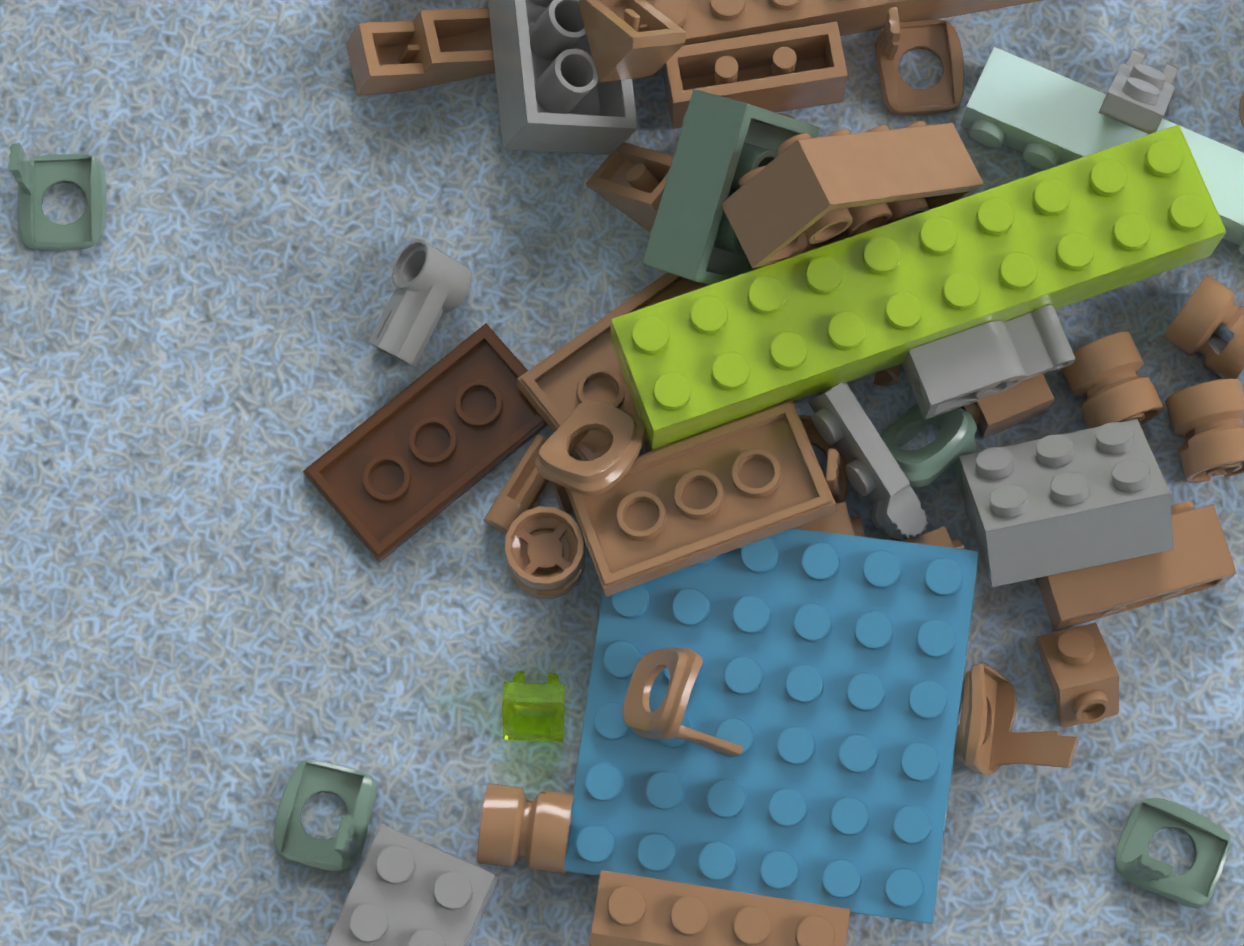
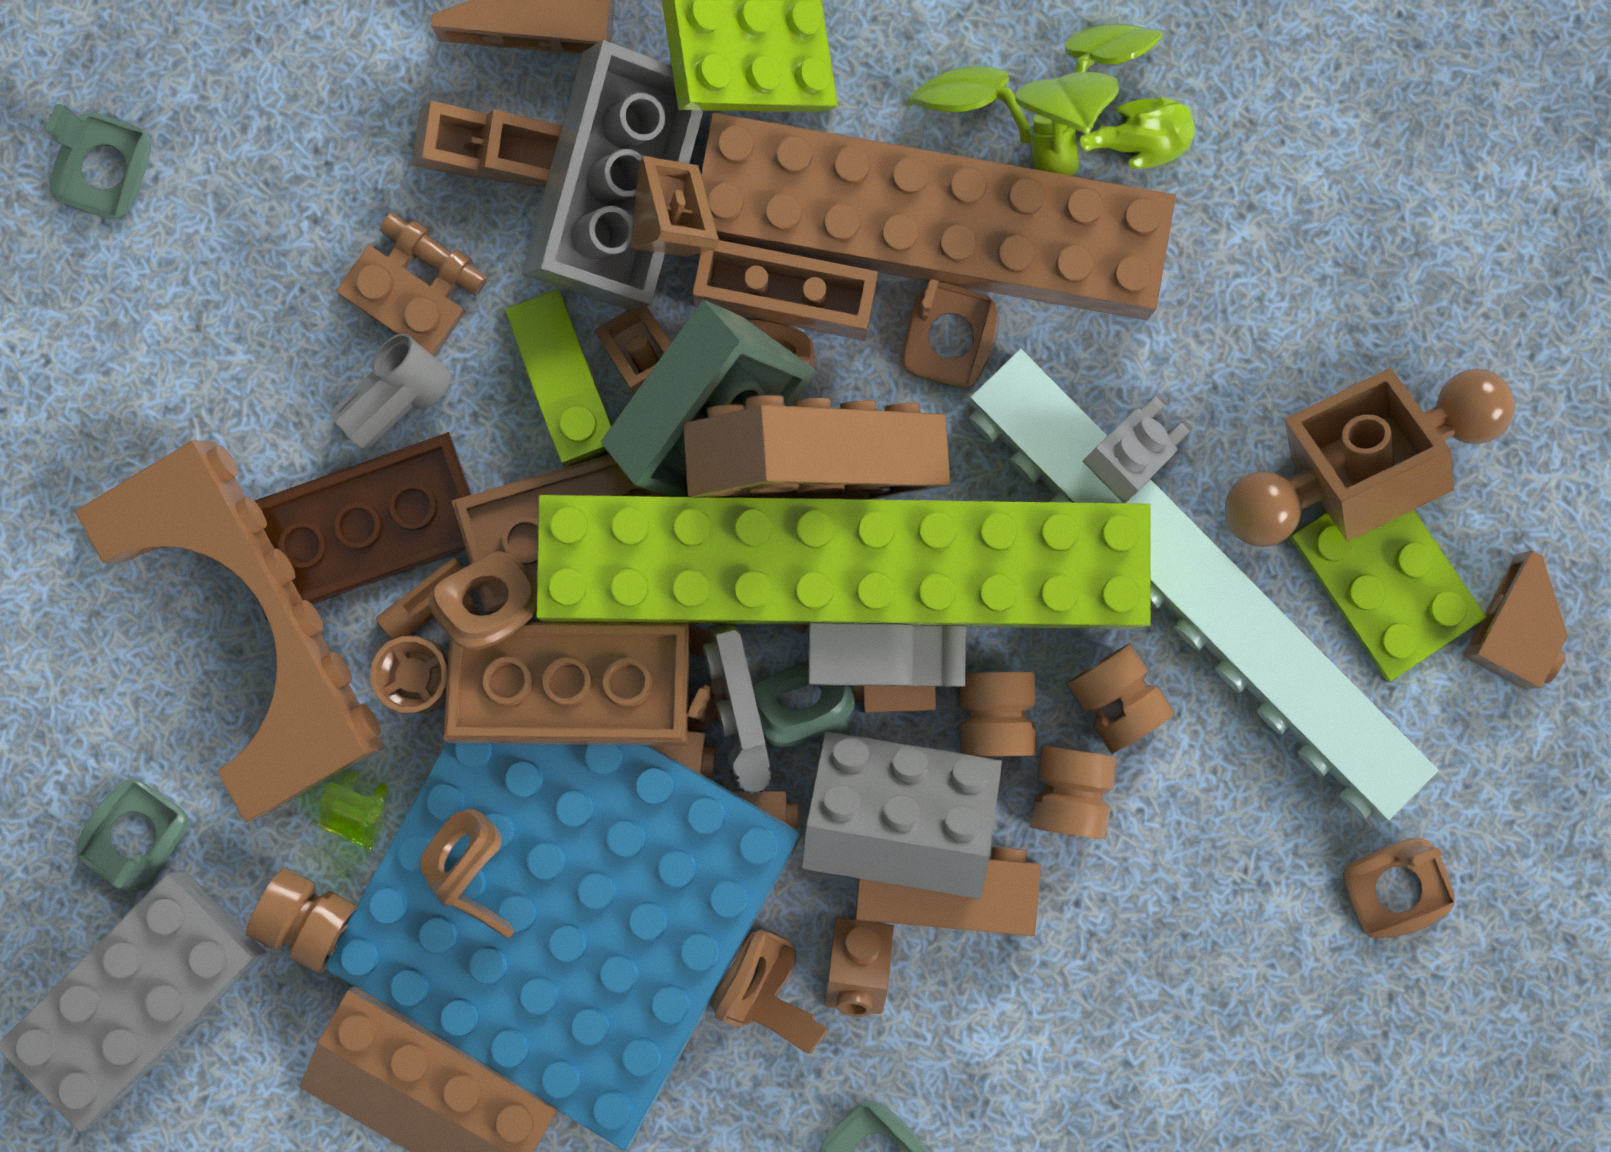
camera: 15 degrees right, 10 degrees up
(391, 219) = (401, 299): none -> medium nougat plate
(465, 634) = (314, 716): none -> medium nougat arch
(577, 235) = (560, 377): none -> lime slope

